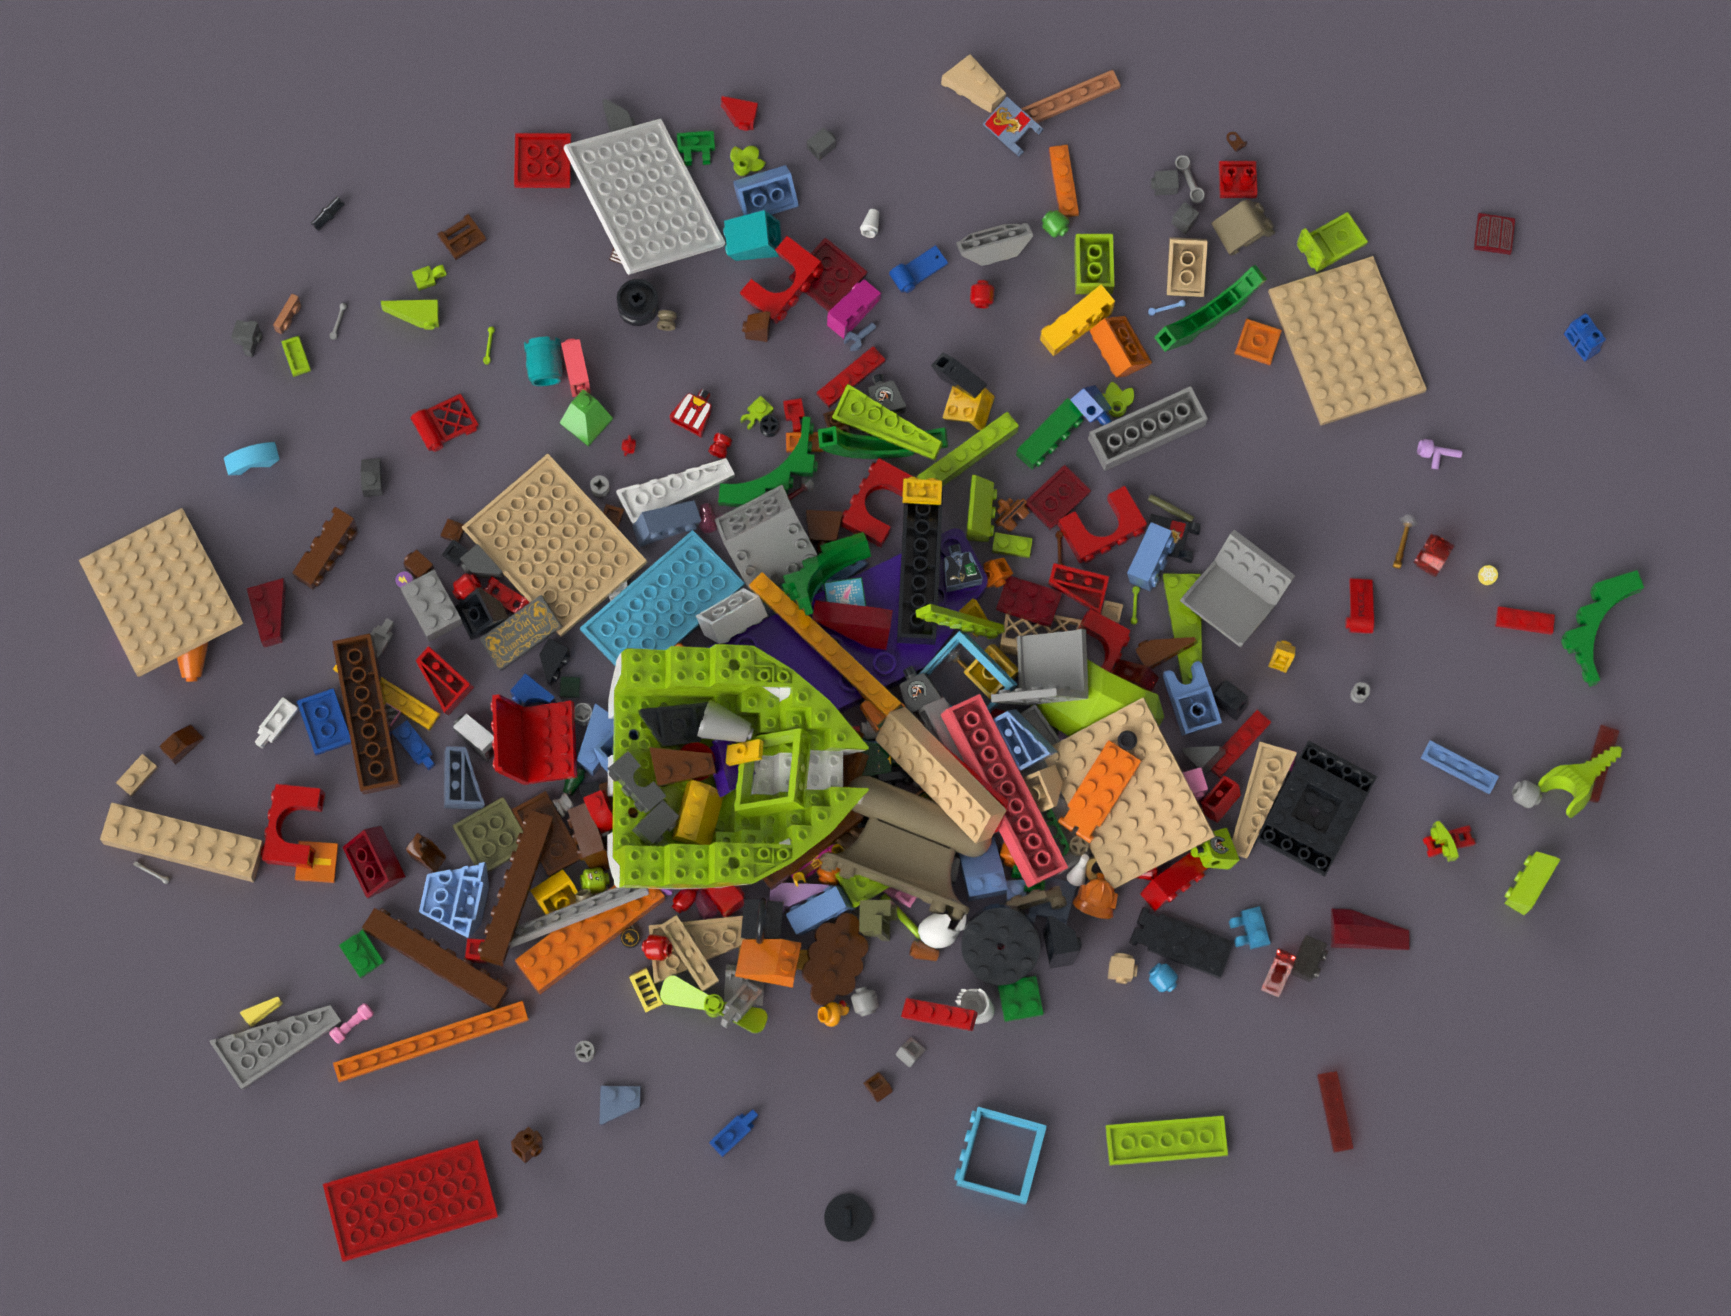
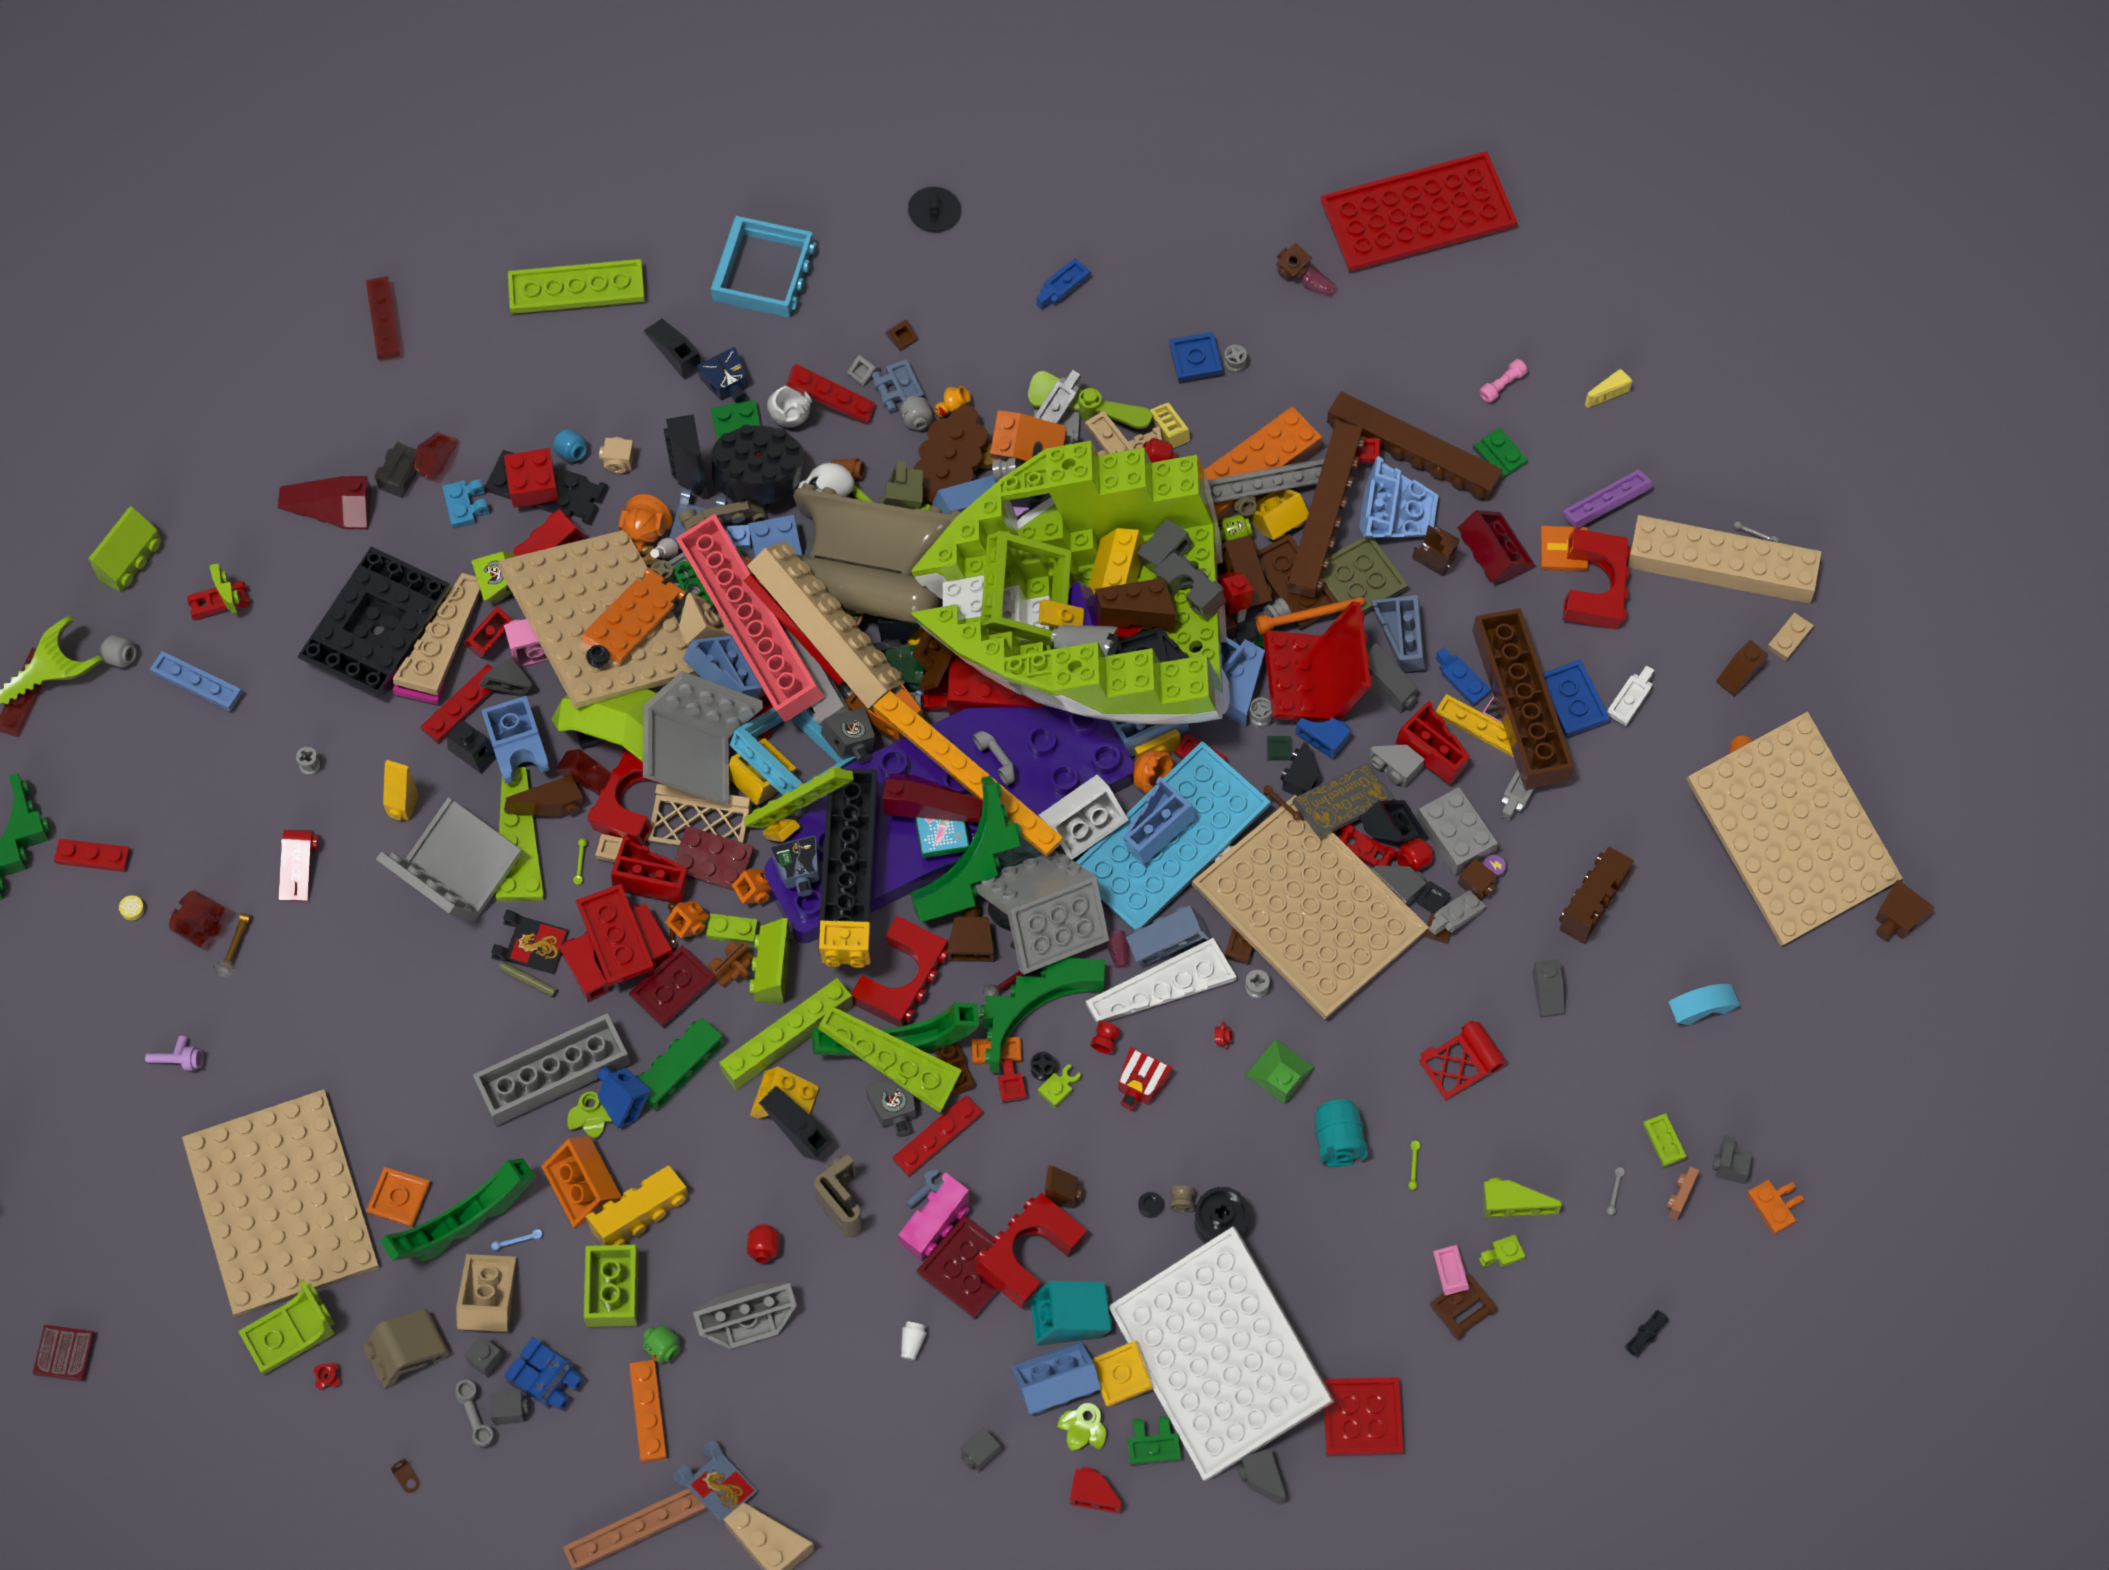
camera: 175 degrees left, 10 degrees down
(84, 530) = (1902, 912): none -> reddish brown torso
(221, 305) = (1772, 1207): none -> orange hinge
(265, 1047) = (1591, 357): light grey wing -> none
(268, 610) = (1659, 821): dark red wedge -> none
(274, 903) = (1607, 499): none -> medium lavender plate
(430, 1041) = (1411, 364): orange plate -> none
(438, 537) = (1457, 913): none -> light grey hinge
(468, 261) = (1451, 1270): none -> bright pink tile
(473, 668) = (1398, 762): none -> light grey slope
(506, 1127) = (1317, 282): none -> clear pink cone
(572, 788) = (1267, 623): none -> orange piece
(575, 366) = (1297, 1124): coral brick -> none
(581, 638) = (1268, 791): none -> reddish brown hinge
(617, 1101) = (1194, 313): sand blue wing -> none
(619, 1054) = (1195, 357): none -> blue plate
(671, 606) = (1158, 822): none -> medium blue wedge
(690, 320) = (1150, 1205): none -> black tile
(717, 194) = (1122, 1374): none -> yellow plate
(788, 929) = (1002, 468): none -> light grey wheel
(792, 650) = (983, 741): none -> light grey bar
(875, 1034) = (903, 381): none -> sand blue plate
(917, 270) = (850, 1279): blue door -> none
(928, 321) = (835, 1199): none -> dark tan piece
(1030, 1043) = (725, 375): none -> dark blue torso
(1047, 547) = (687, 919): none -> orange brick
(1078, 1074) = (674, 347): none -> black slope
(1103, 527) = (615, 935): none -> red plate
(1141, 204) = (543, 1375): none -> blue hips
(1151, 557) = (556, 903): medium blue brick -> none
(1194, 937) = (531, 477): none -> red brick
(1237, 179) = (408, 1417): red plate -> none
(1303, 207) = (321, 1370): none -> red plate

